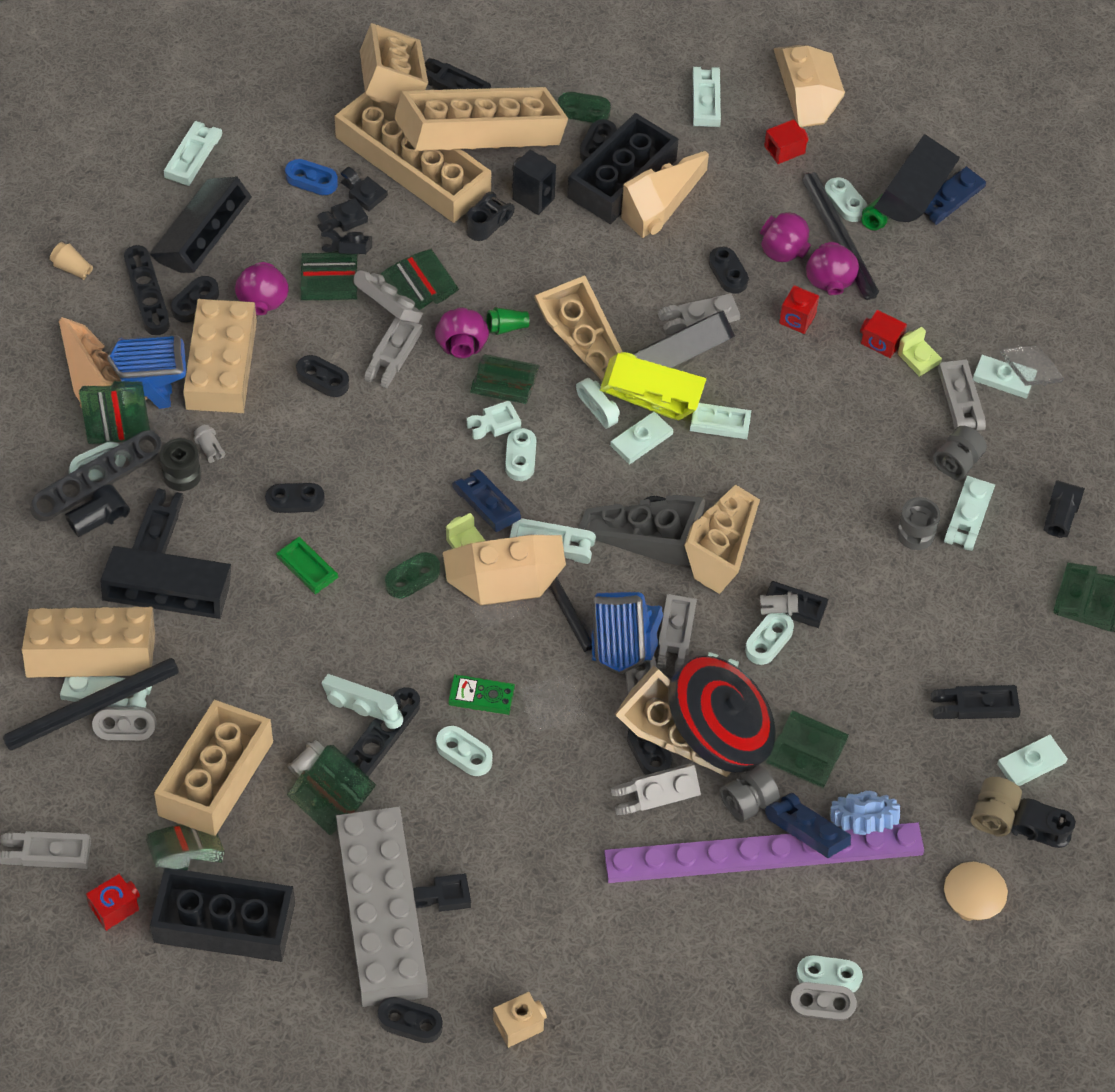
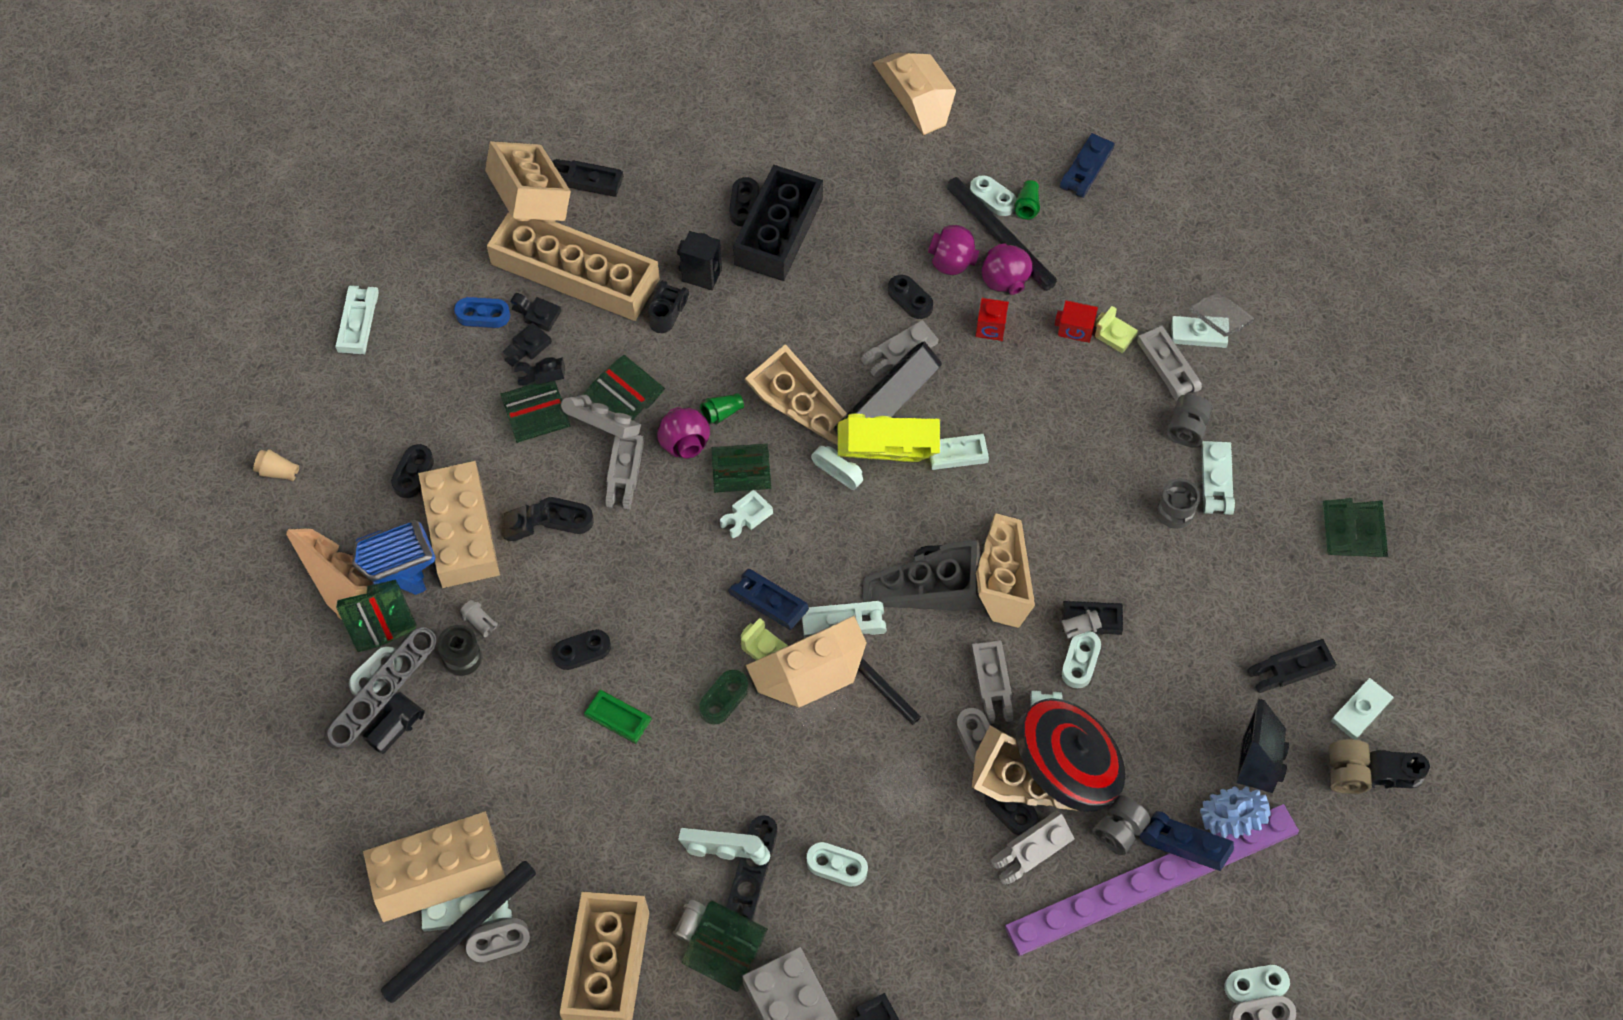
camera: 15 degrees left, 5 degrees up
(146, 290) = (362, 474): black beam -> none
(158, 523) = (458, 723): black hinge -> none
(166, 582) = (486, 777): black brick -> none
(201, 224) = (392, 392): black brick -> none
(262, 285) = (474, 441): magenta plant -> none
(279, 369) = (521, 521): none -> black plate
(480, 118) = (629, 211): tan brick -> none
(481, 694) = (832, 799): green tile -> none
(520, 452) = (782, 539): light aqua plate -> none
(584, 106) = (718, 169): clear green plate -> none
(624, 630) = (948, 698): blue piece -> none
(641, 437) = (890, 490): light aqua plate -> none
(656, 195) = (819, 241): tan wedge -> none
(706, 97) = (829, 128): light aqua plate -> none
(786, 141) = (919, 153): red brick -> none
(807, 749) = (1156, 761): clear green slope -> none
(913, 763) = (1263, 750): none -> black slope
(917, 181) = (1055, 161): black brick -> none
(975, 891) = (1358, 856): tan dish -> none
(1064, 505) = (1300, 448): black piece -> none

